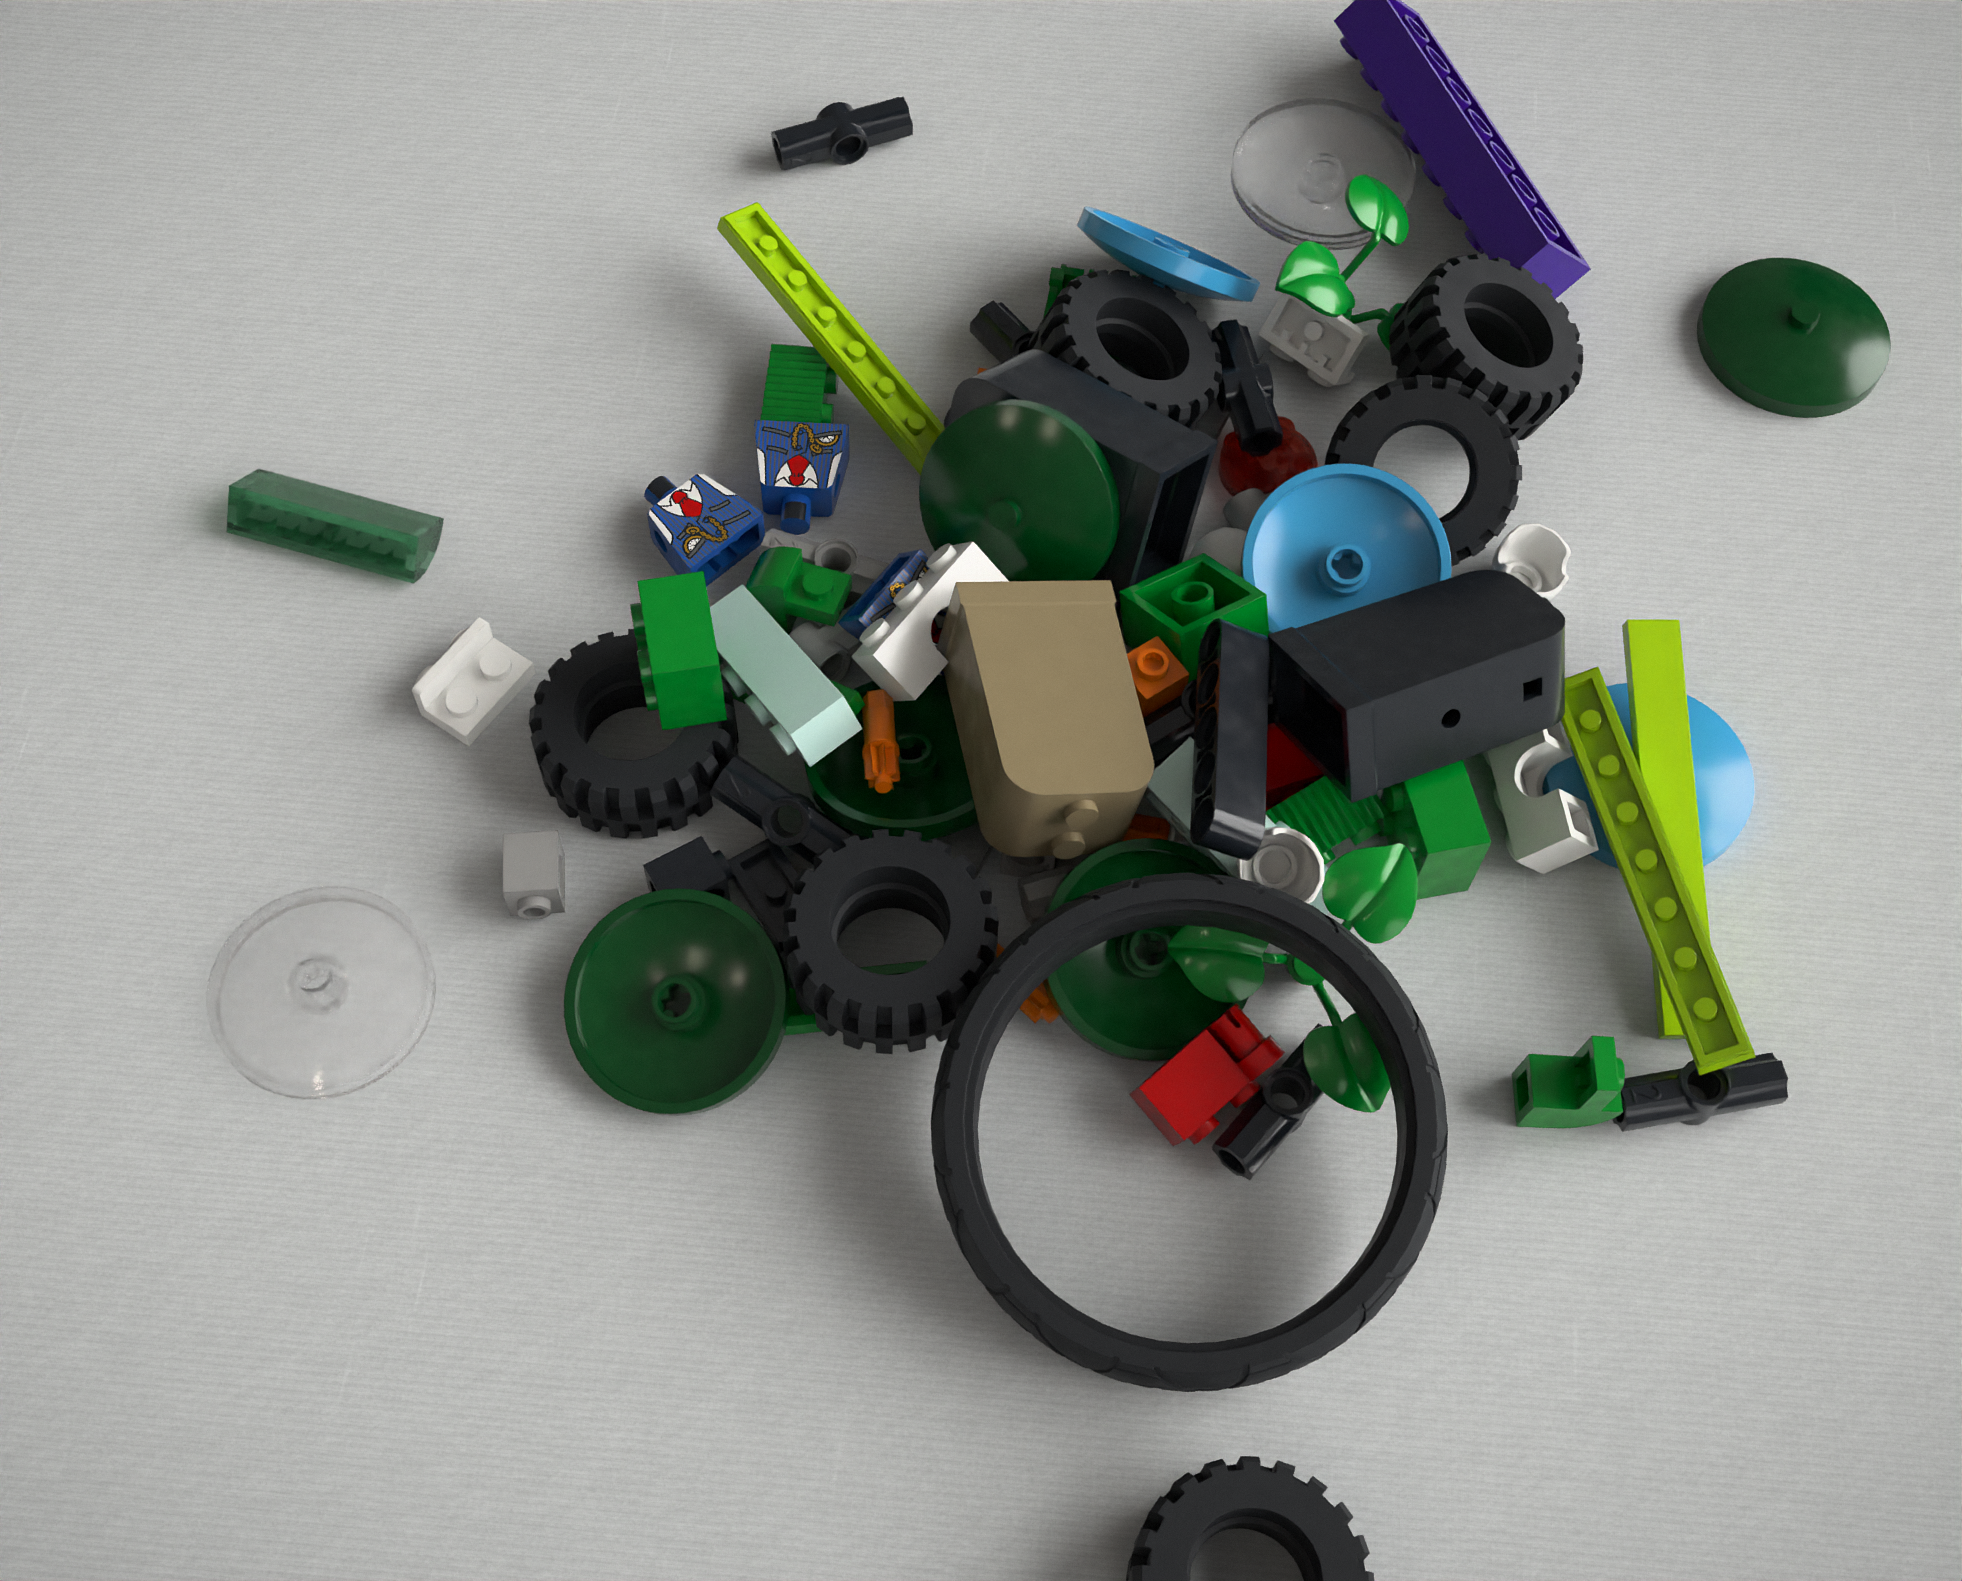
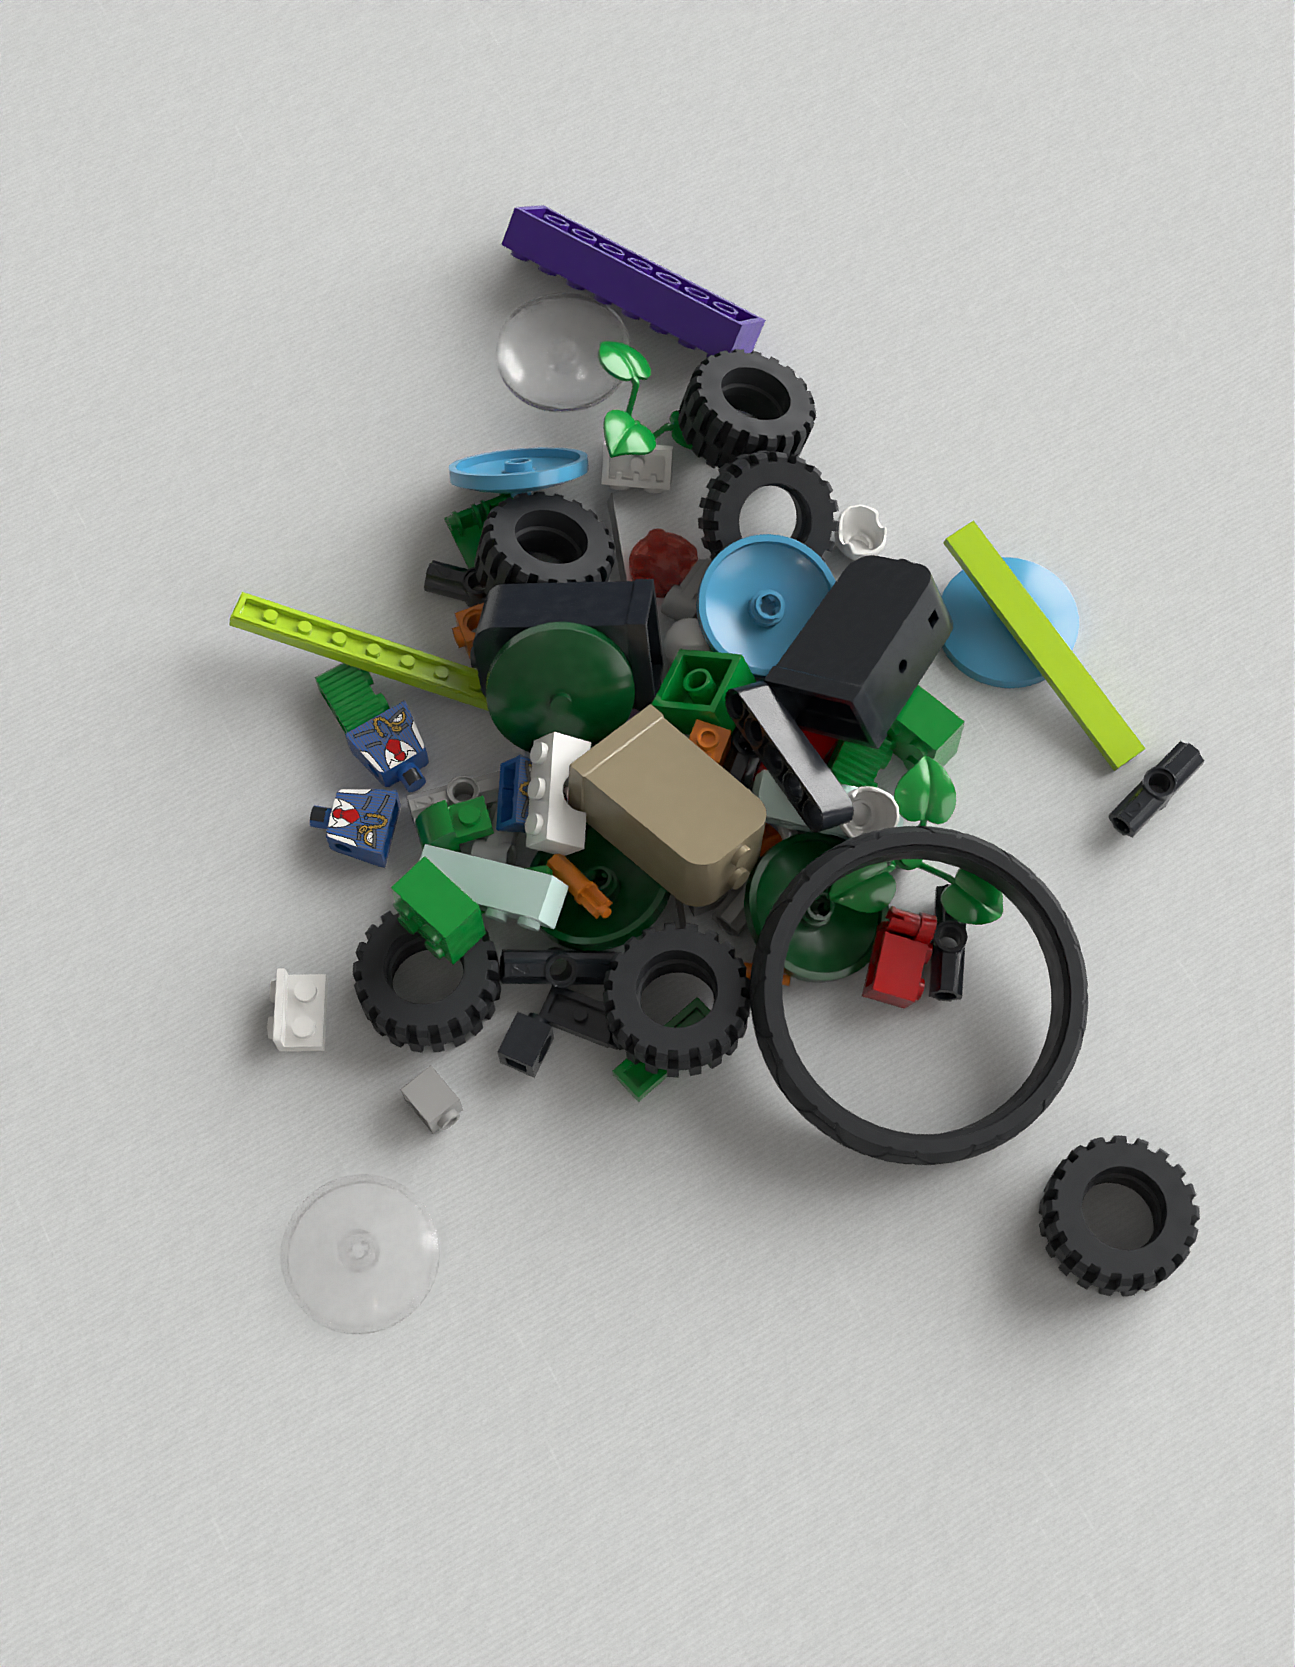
camera: 30 degrees left, 5 degrees up
(333, 525) = (128, 970): clear green brick -> none
(676, 1002) = (578, 1117): dark green dish -> none
(842, 133) = (242, 506): black piece -> none
(1246, 390) = (625, 526): black piece -> none
(1541, 828) = (977, 691): white arch -> none
(1569, 1089) = (1091, 832): green brick -> none
(1653, 877) = (1056, 681): lime tile -> none
(1793, 337) = (904, 290): dark green dish -> none

